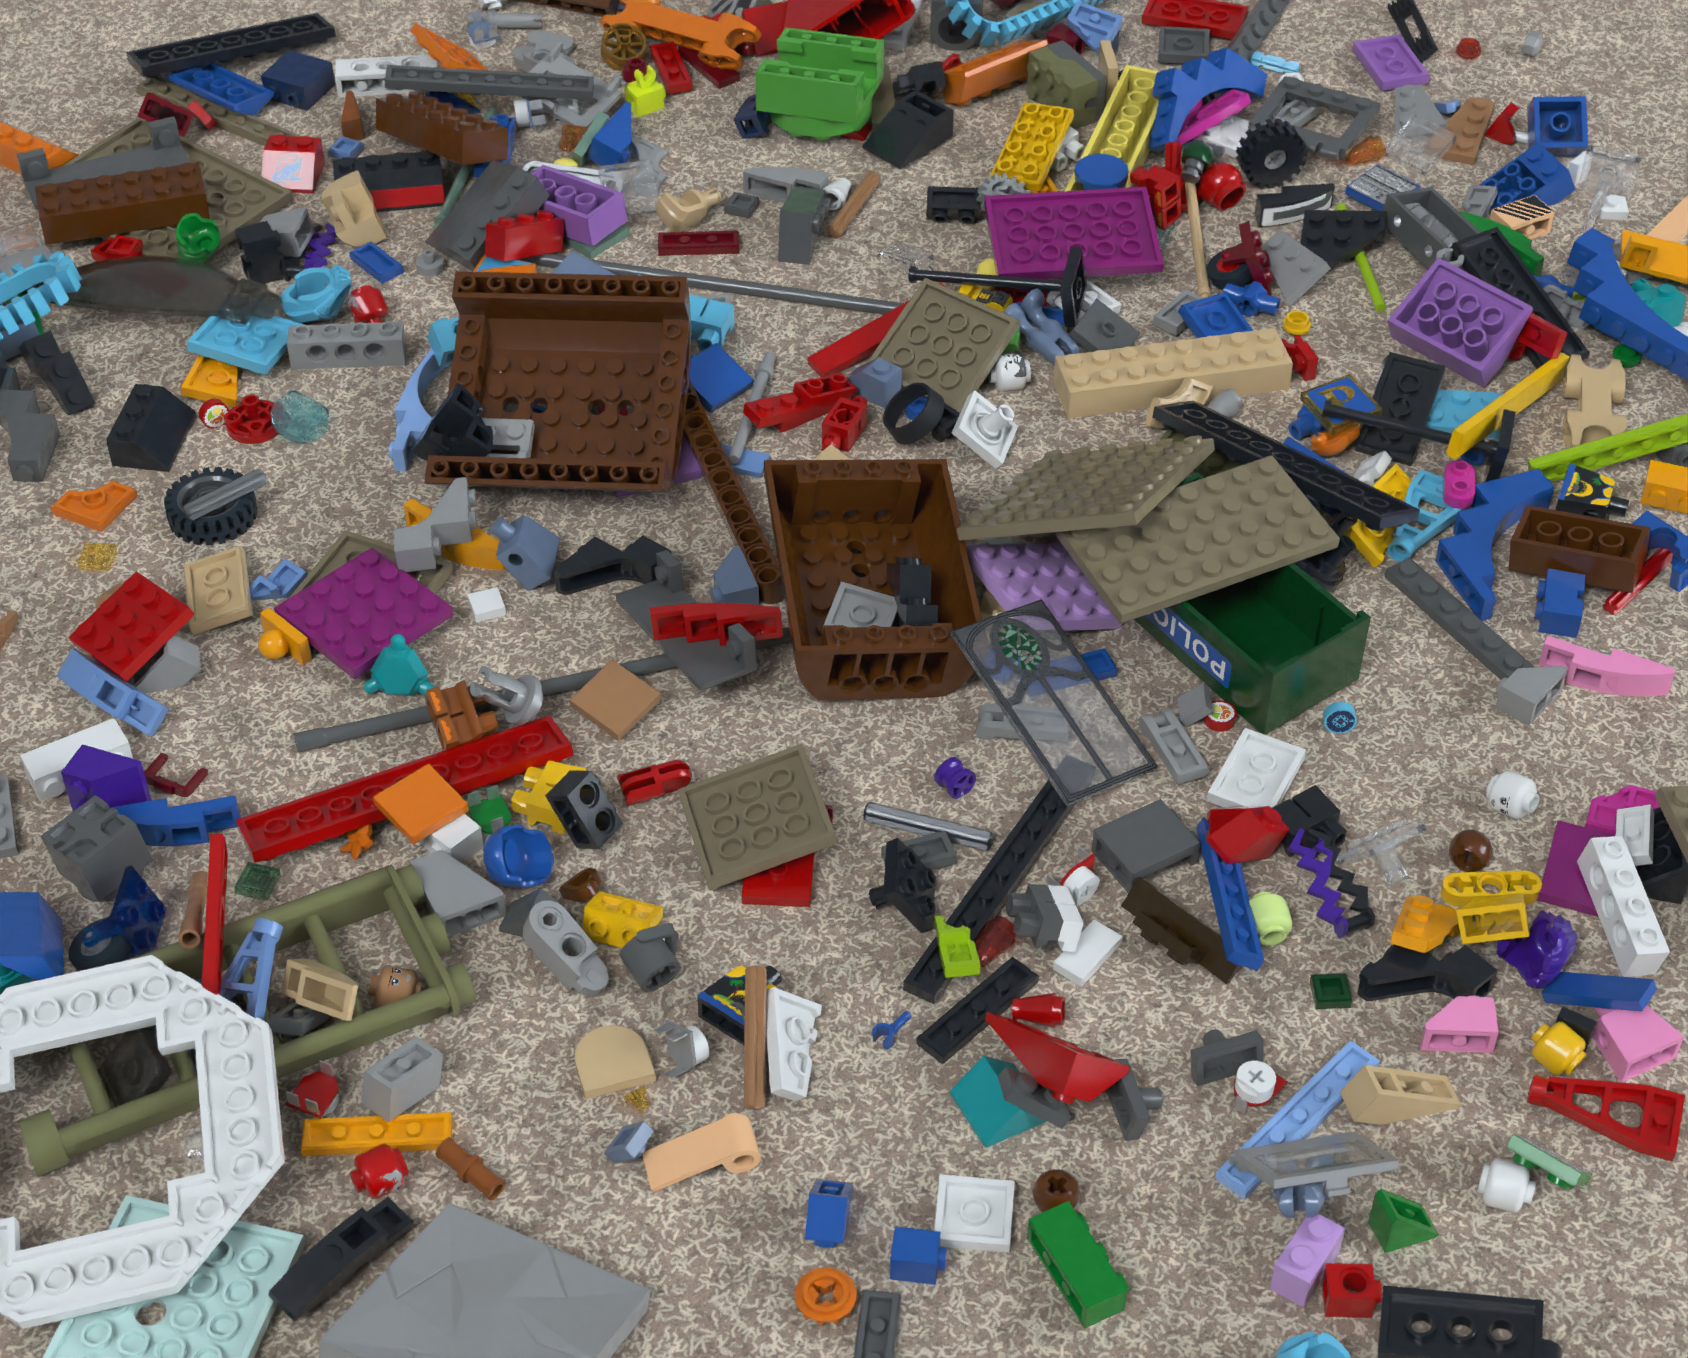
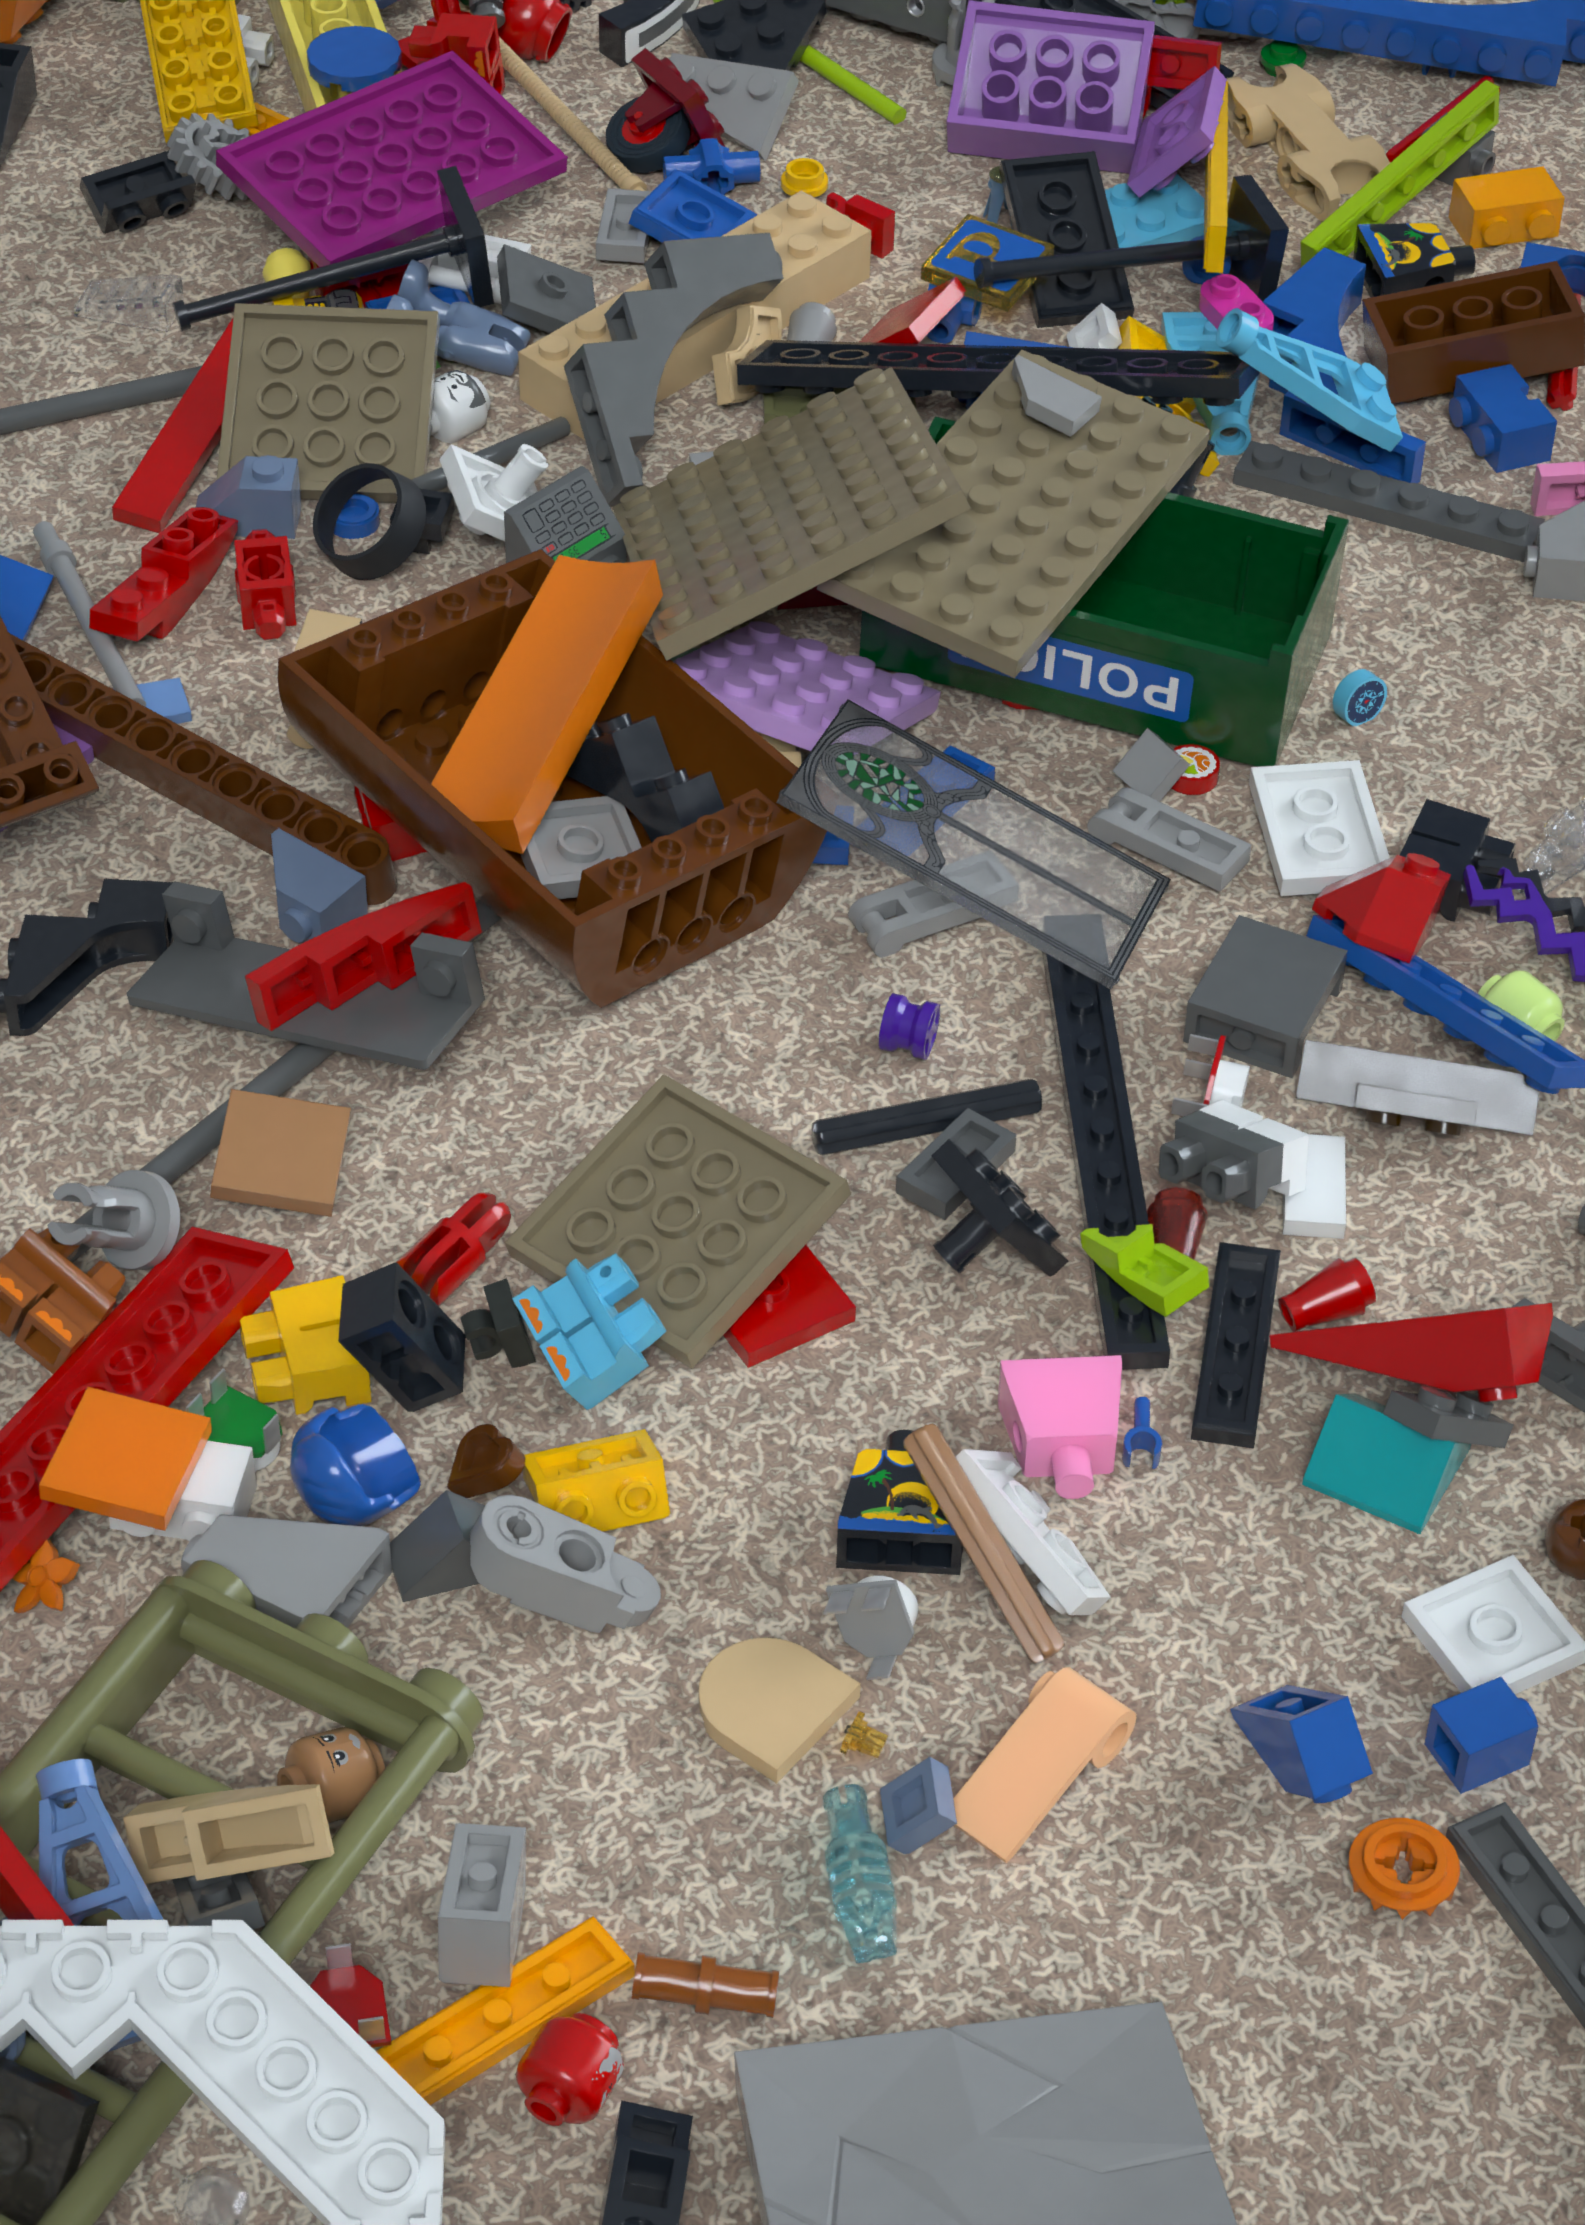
camera: 35 degrees left, 0 degrees up
(576, 1159) = (860, 1877): none -> clear light blue hinge
(643, 827) = (499, 1327): none -> pearl dark grey tile
(651, 958) = (706, 1510): dark grey piece -> none
(671, 848) = (583, 1333): none -> medium azure hips
(857, 1001) = (1062, 1417): none -> bright pink torso
(886, 535) = (547, 694): none -> orange arch
(991, 461) = (566, 521): none -> dark grey slope
(1019, 405) = (504, 450): none -> dark grey bar
(1158, 355) = (619, 379): none -> dark grey arch
(1258, 487) = (1054, 398): none -> light grey tile
(1278, 418) = (917, 316): none -> tile
(1329, 445) = (1015, 323): orange arm -> none
(1476, 553) = (1363, 396): none -> medium azure plate
(1510, 371) = (1177, 133): none -> medium lavender plate

